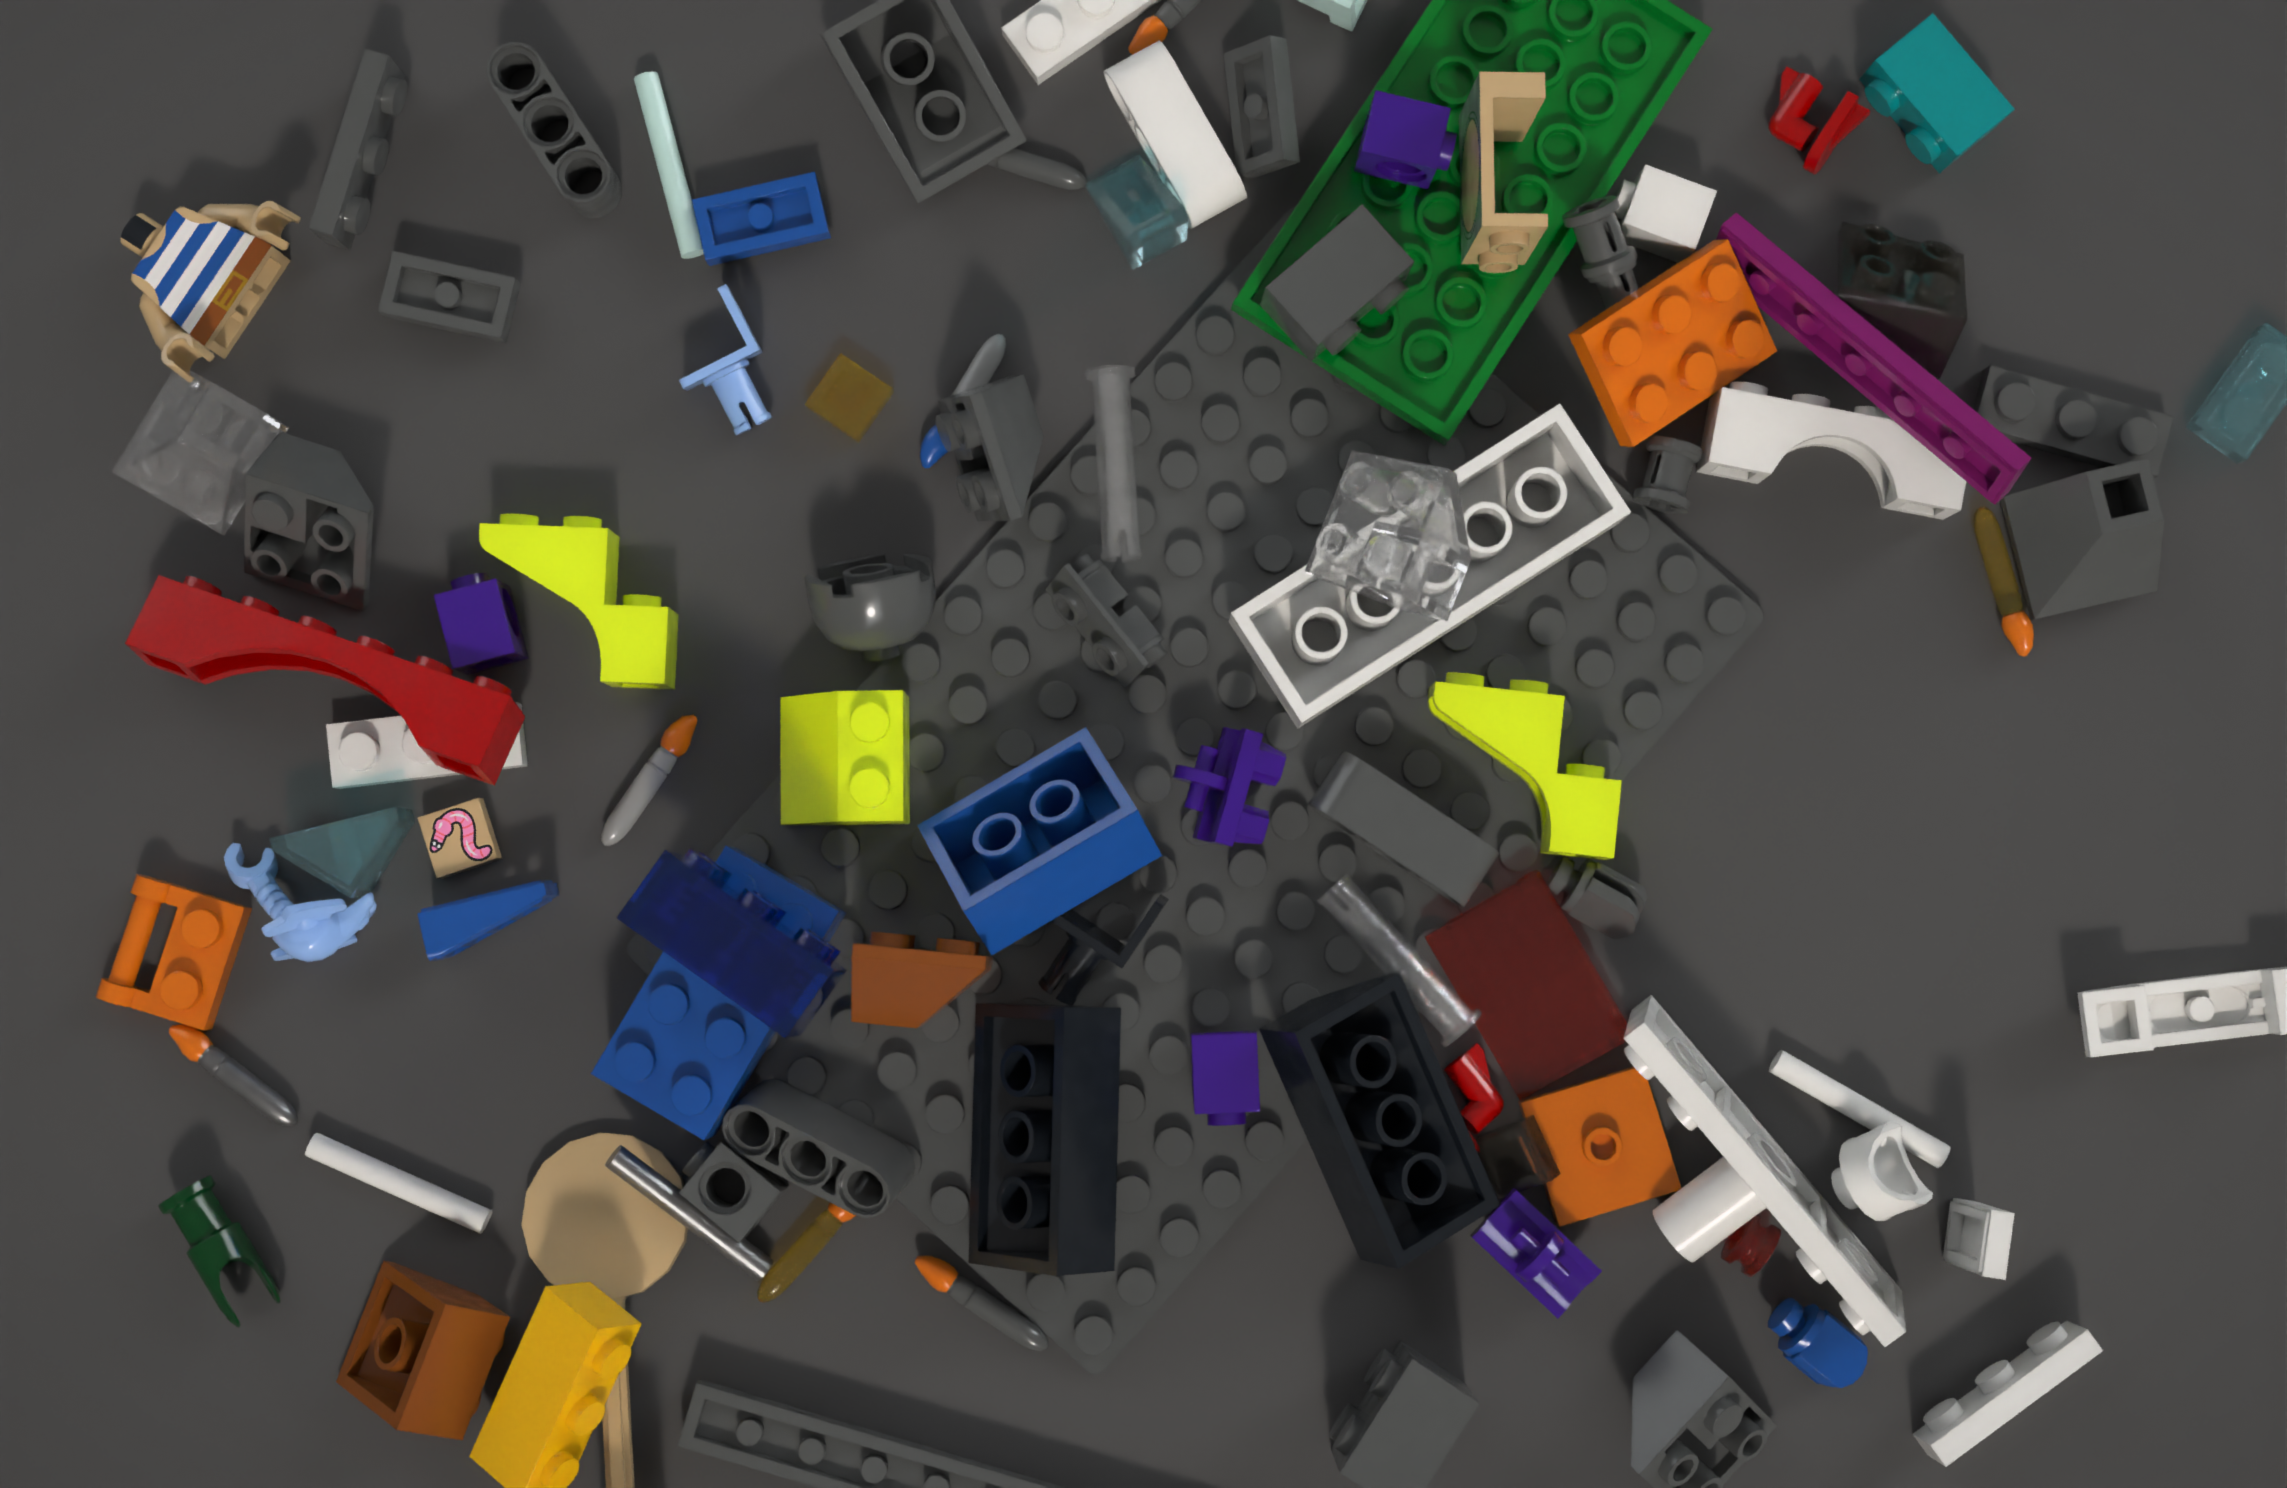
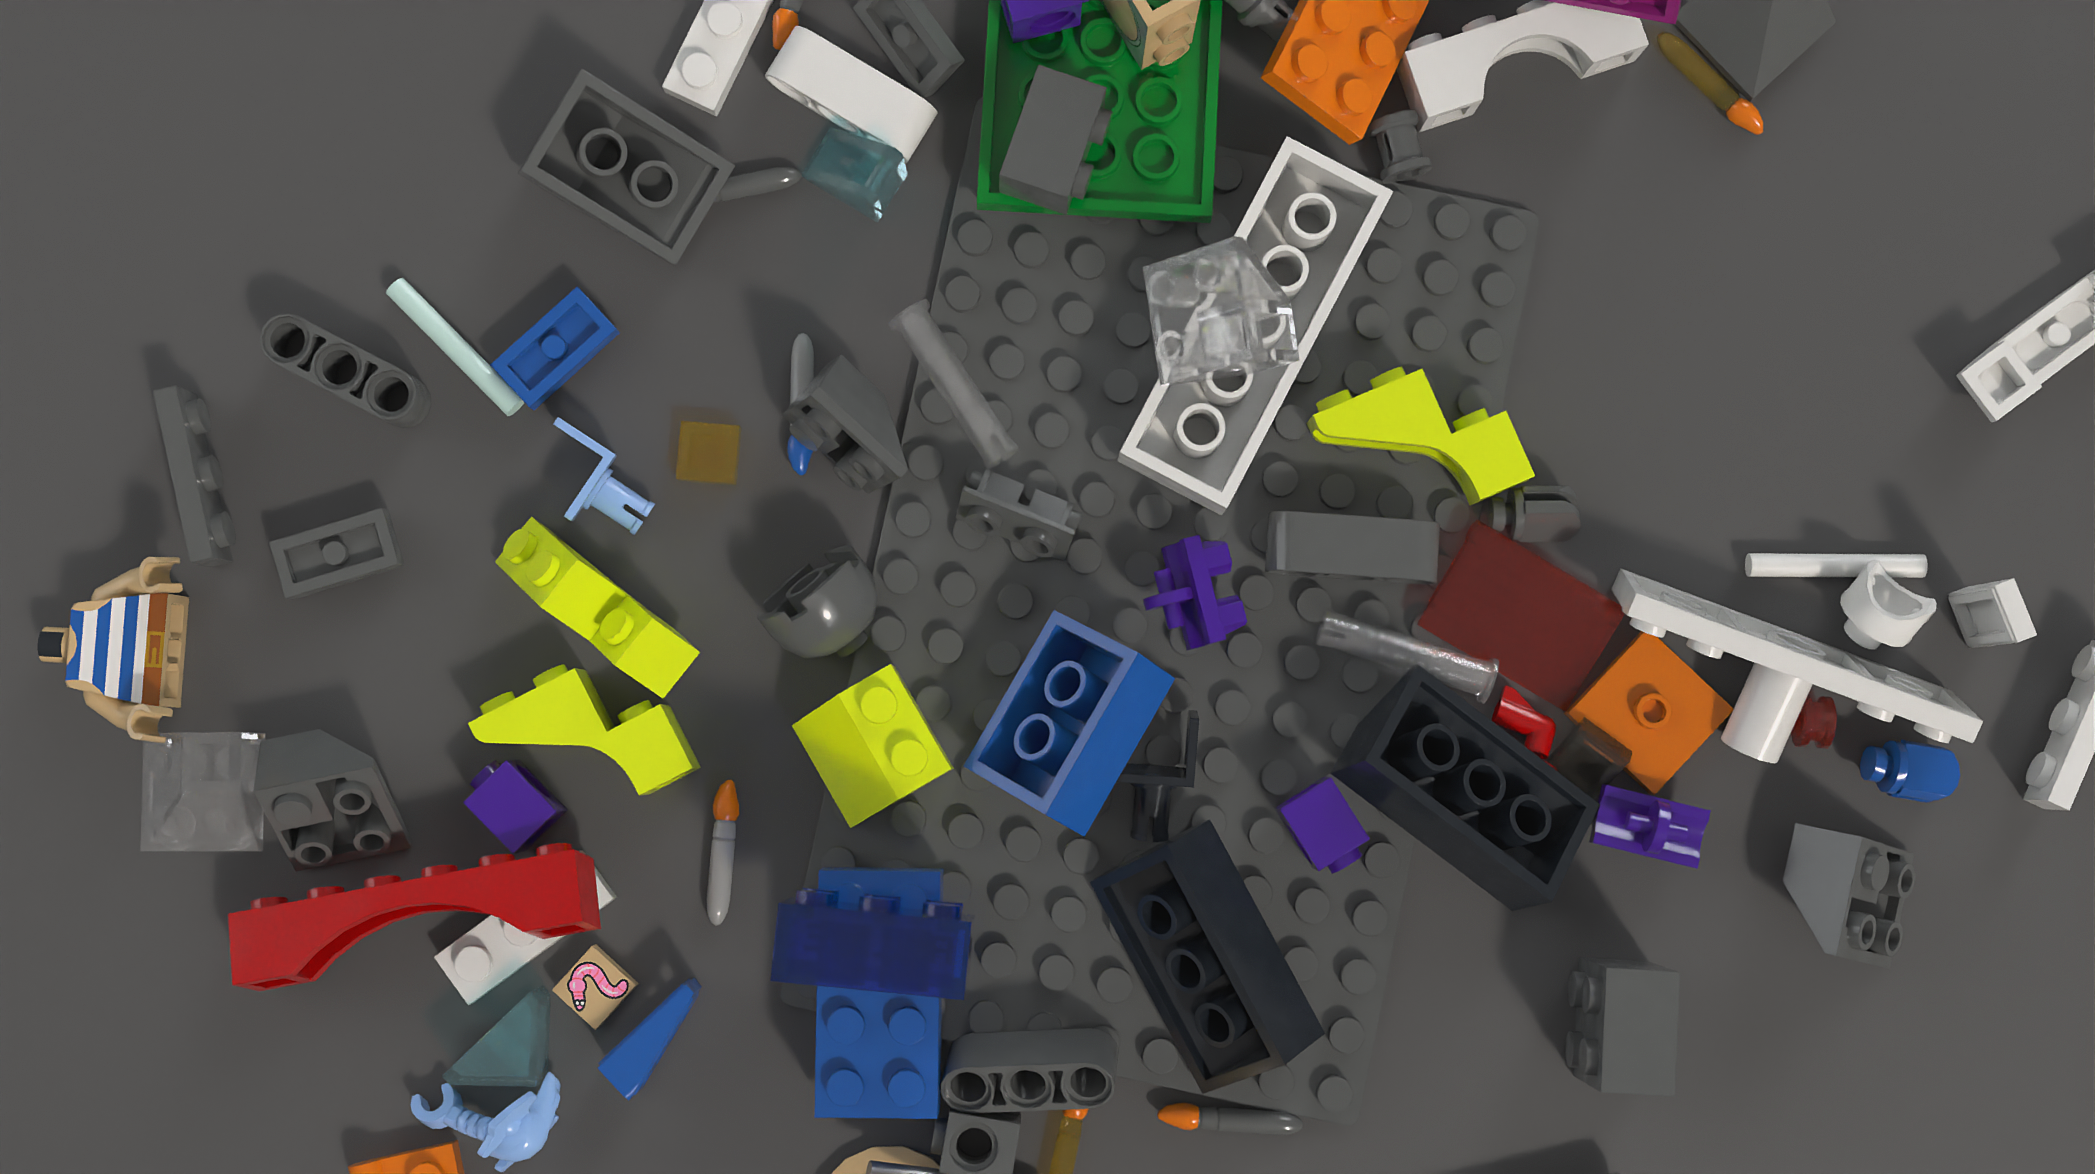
camera: 30 degrees left, 0 degrees up
(660, 483) = (596, 607): none -> neon yellow arch
(907, 984) = (1029, 897): dark orange slope -> none

